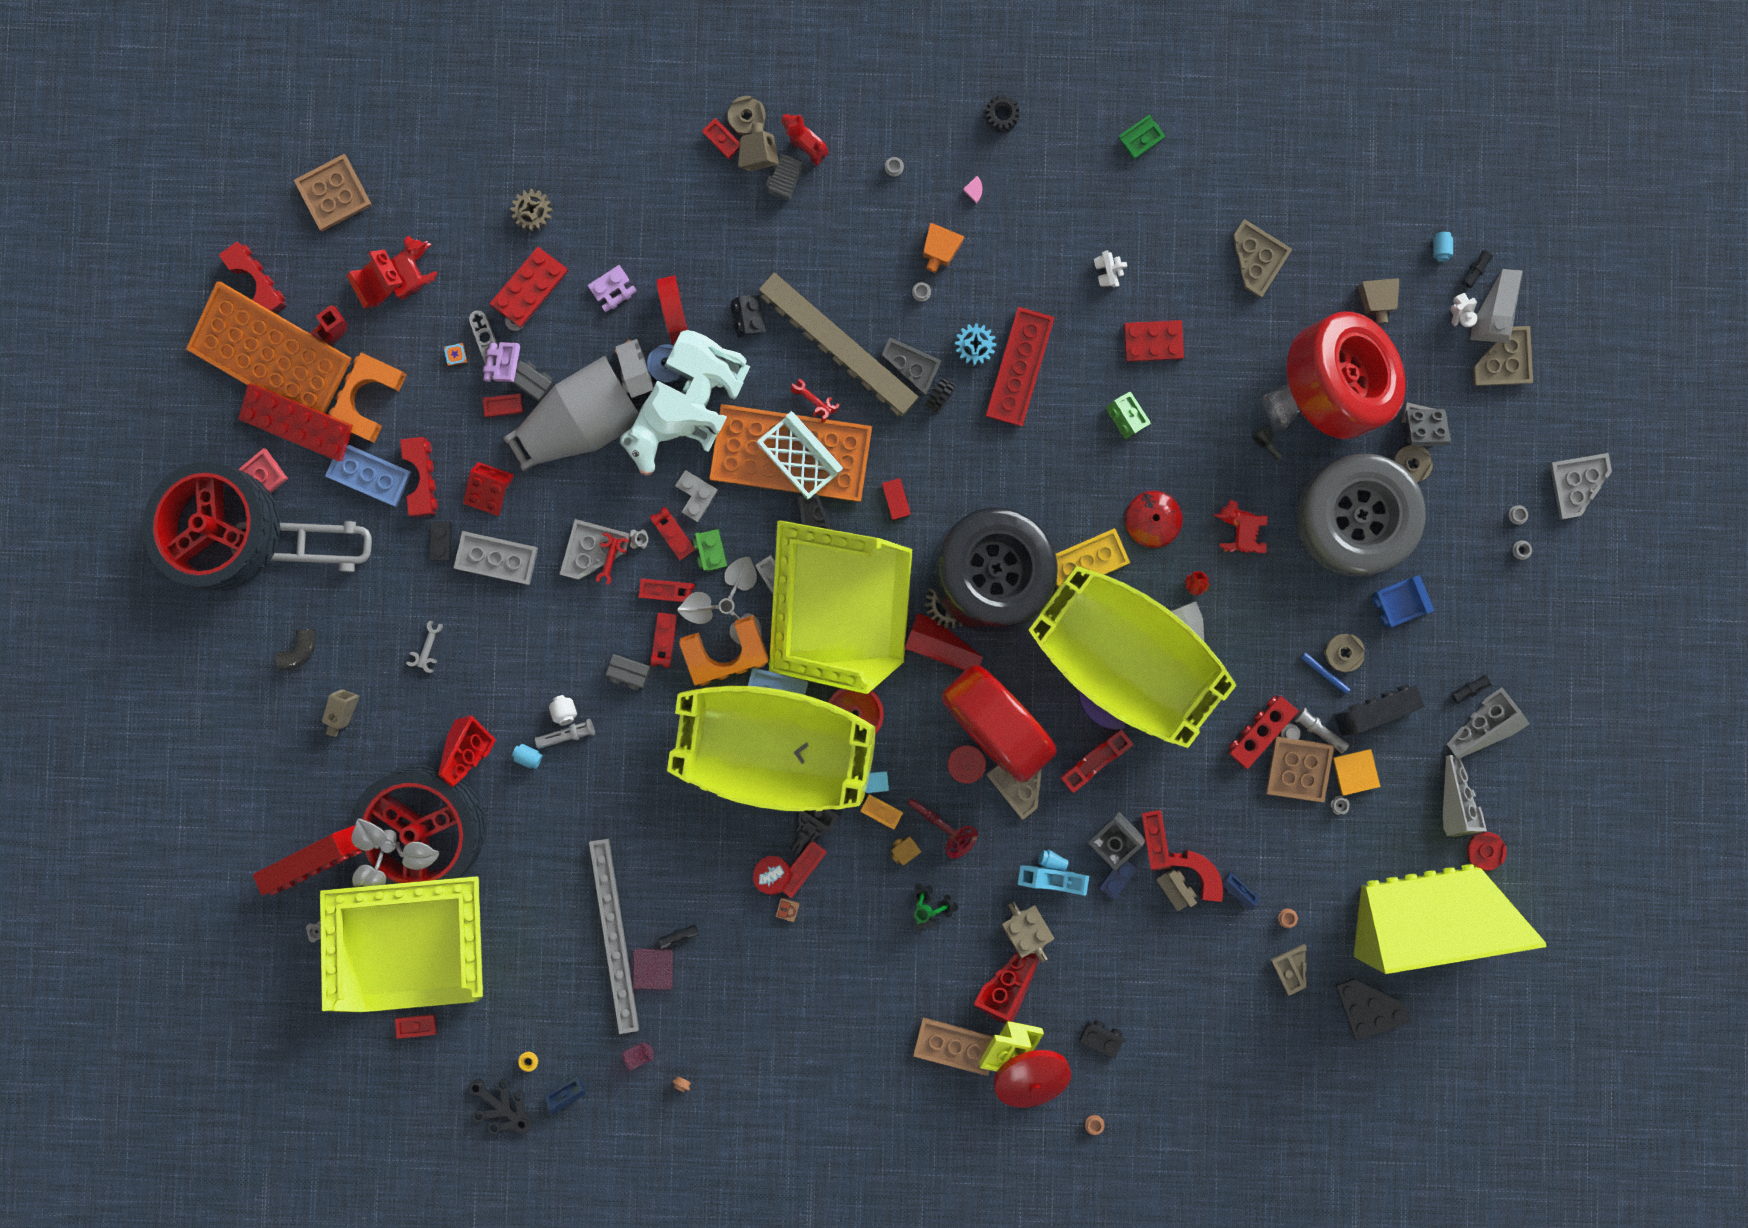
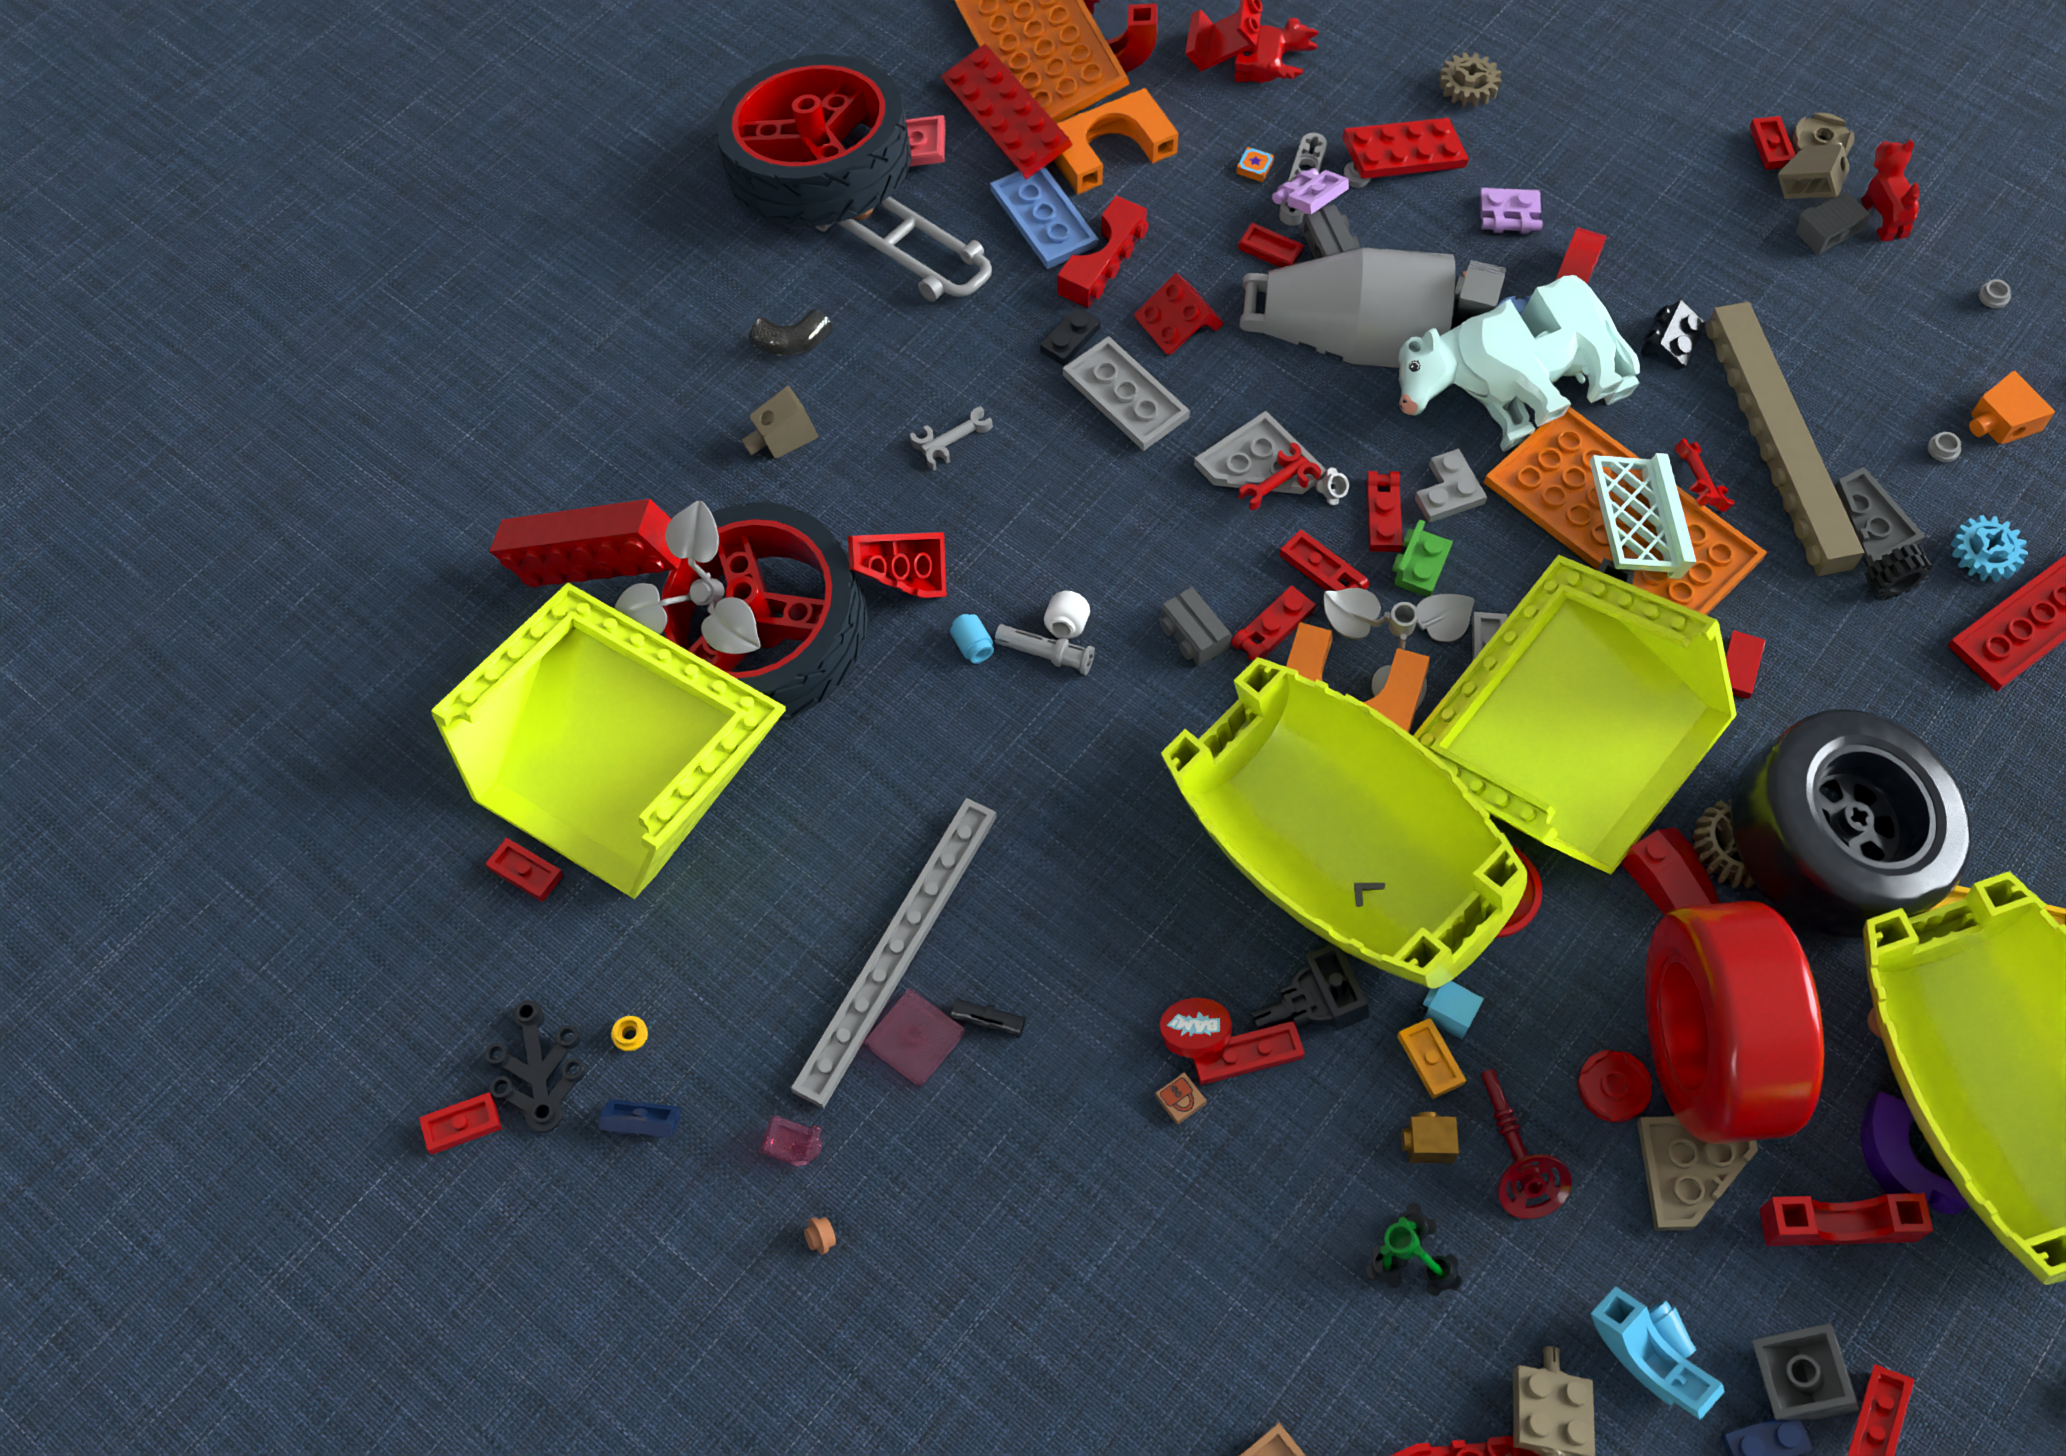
camera: 40 degrees right, 25 degrees down
(489, 1155) = (460, 1123): none -> red plate

